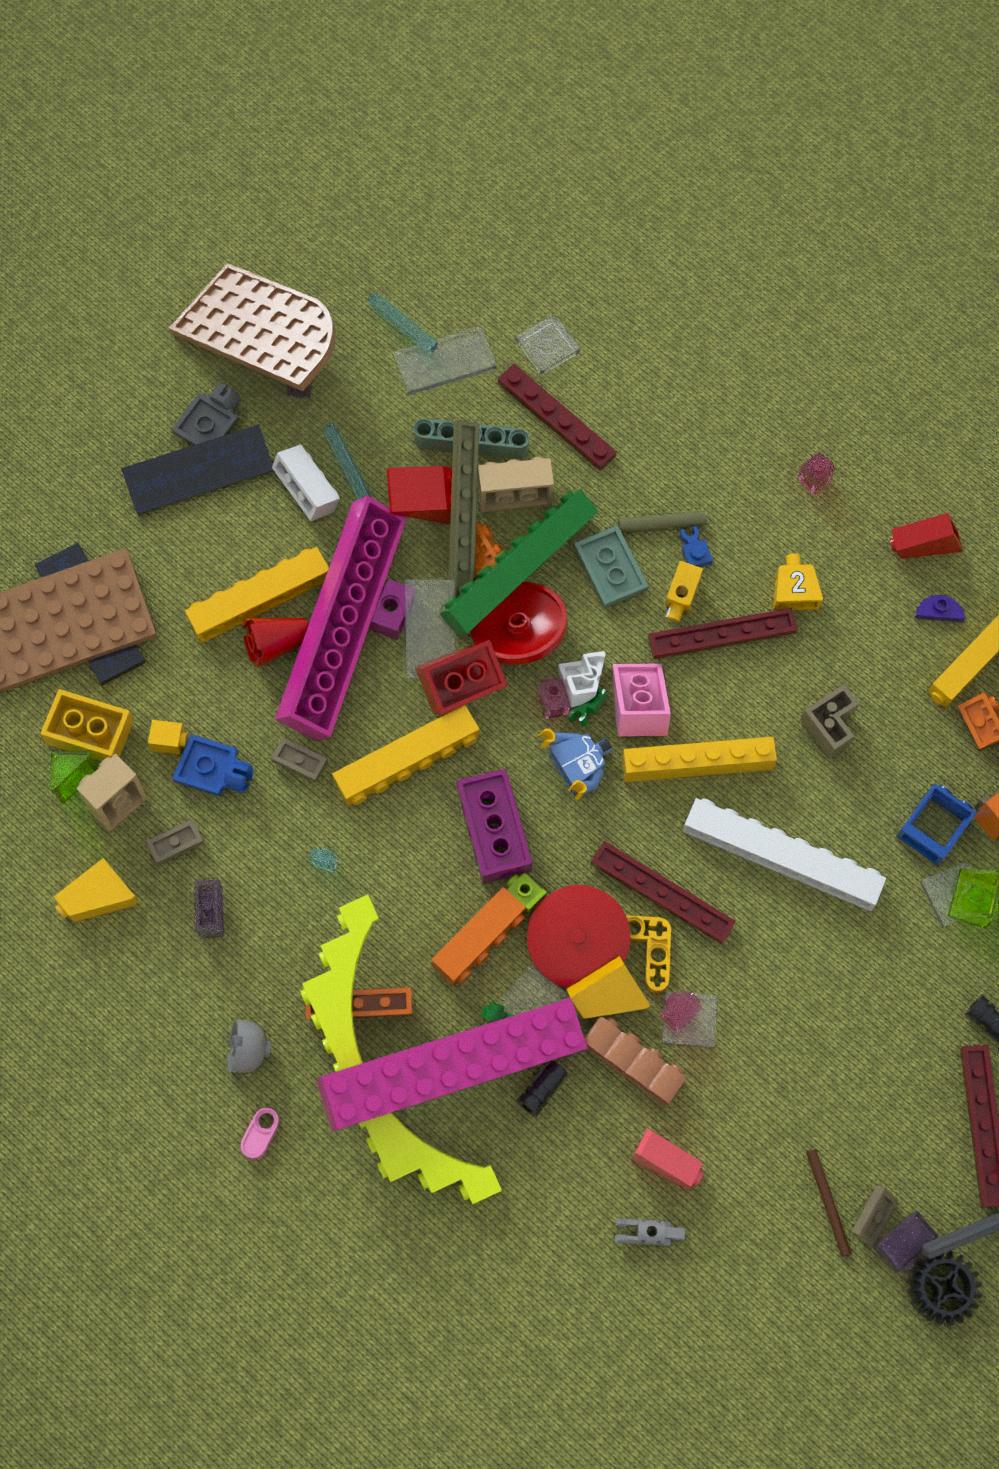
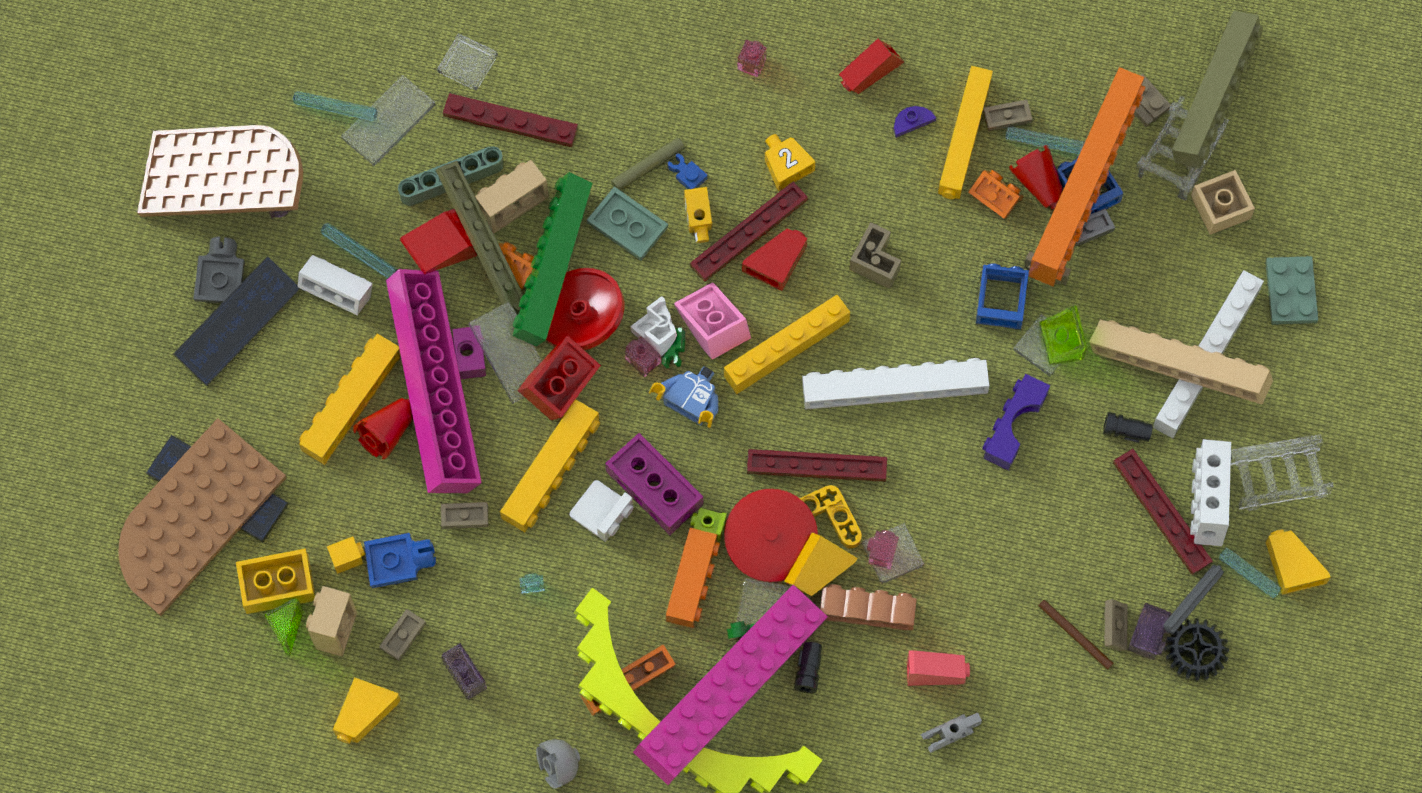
camera: 25 degrees left, 0 degrees up
(430, 824) = (602, 510): none -> white bracket
(734, 673) = (776, 259): none -> red slope
(909, 937) = (1028, 397): none -> dark purple arch

